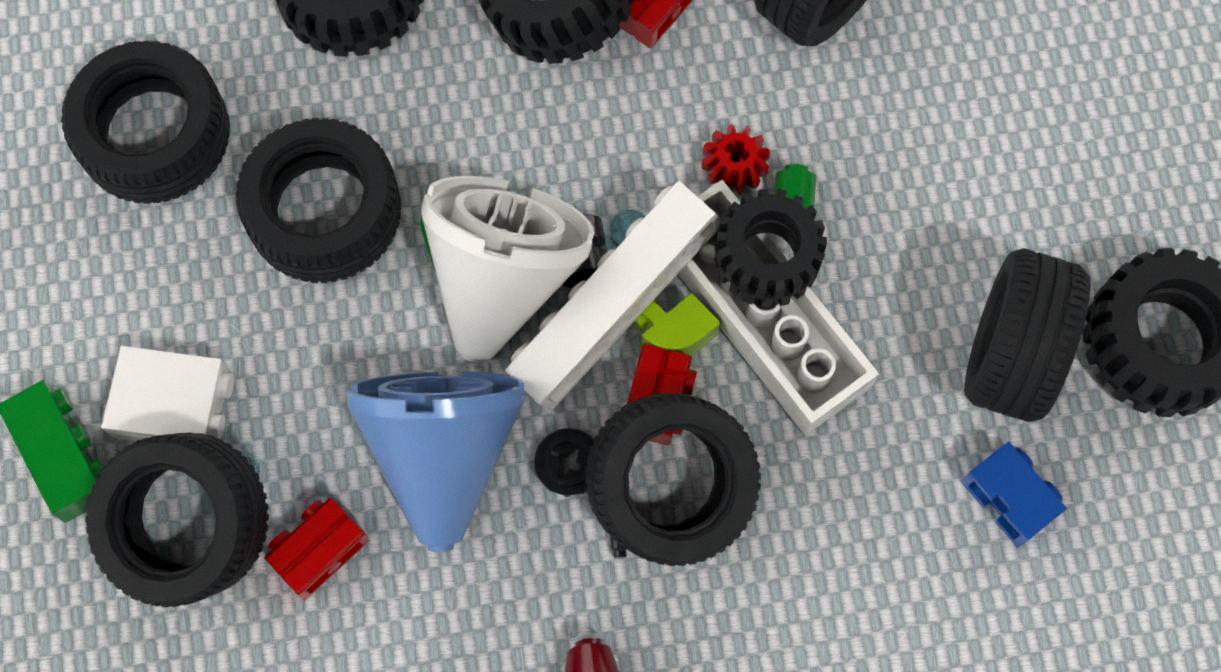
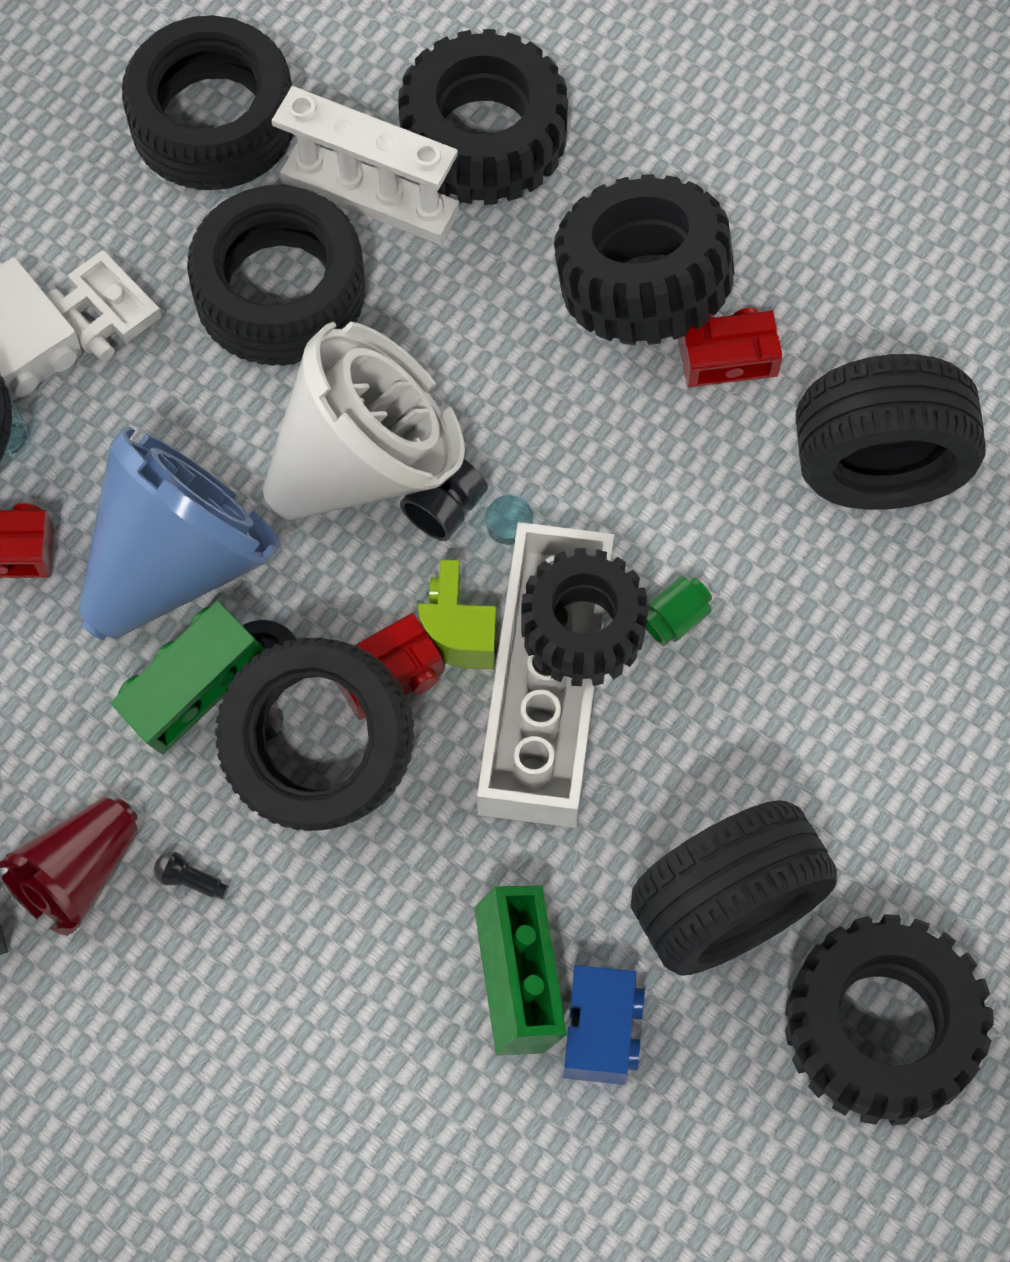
camera: 45 degrees right, 5 degrees down
(215, 313) = (113, 297): none -> white plate
(306, 73) = (359, 186): none -> white fence
(542, 519) = (186, 677): none -> green brick
(614, 295) = (423, 548): white brick -> none
(656, 651) = (173, 869): none -> black piece
(725, 147) = (652, 551): red gear -> none
(939, 507) = (519, 970): none -> green brick

